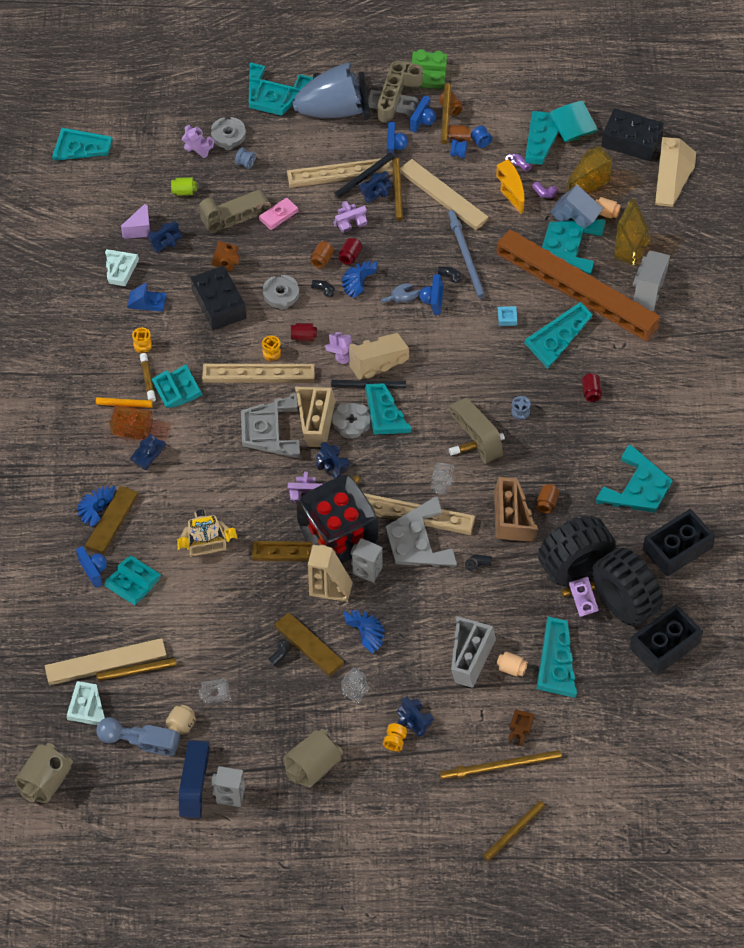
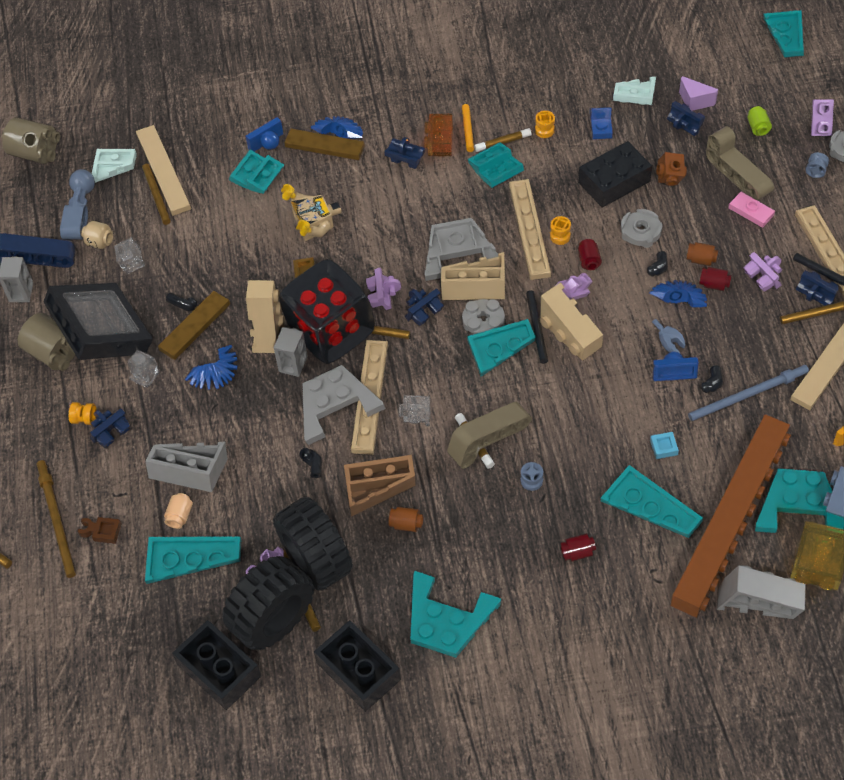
camera: 85 degrees right, 0 degrees up
(302, 710) = (97, 320): none -> black piece

